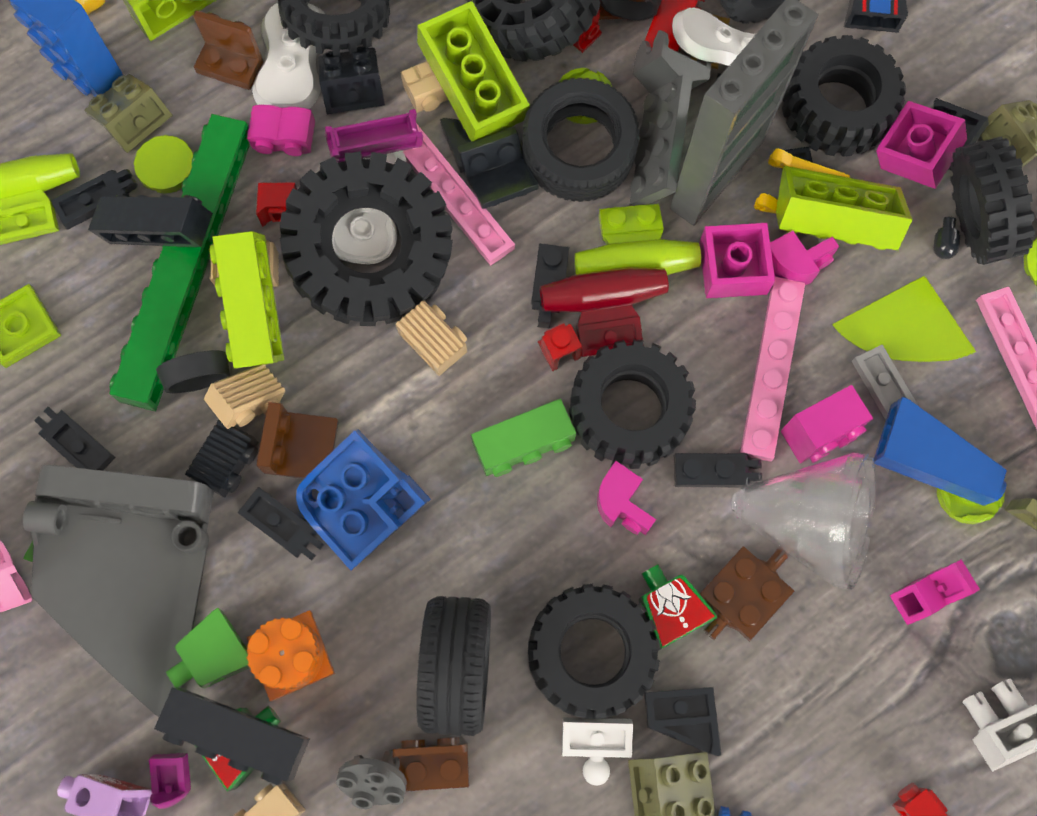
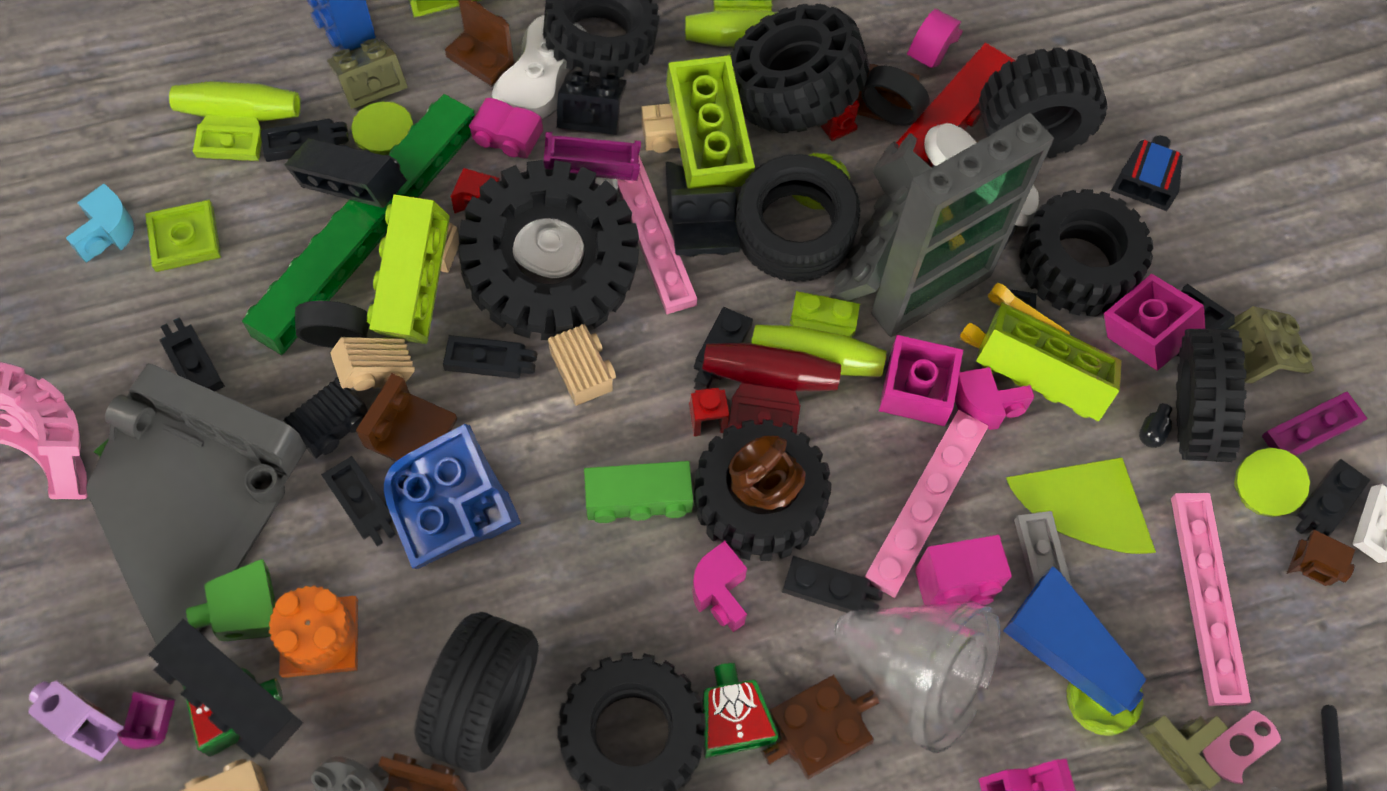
camera: 15 degrees right, 10 degrees down
(345, 356) = (488, 357): none -> black hinge
(637, 393) = (765, 473): none -> reddish brown helmet

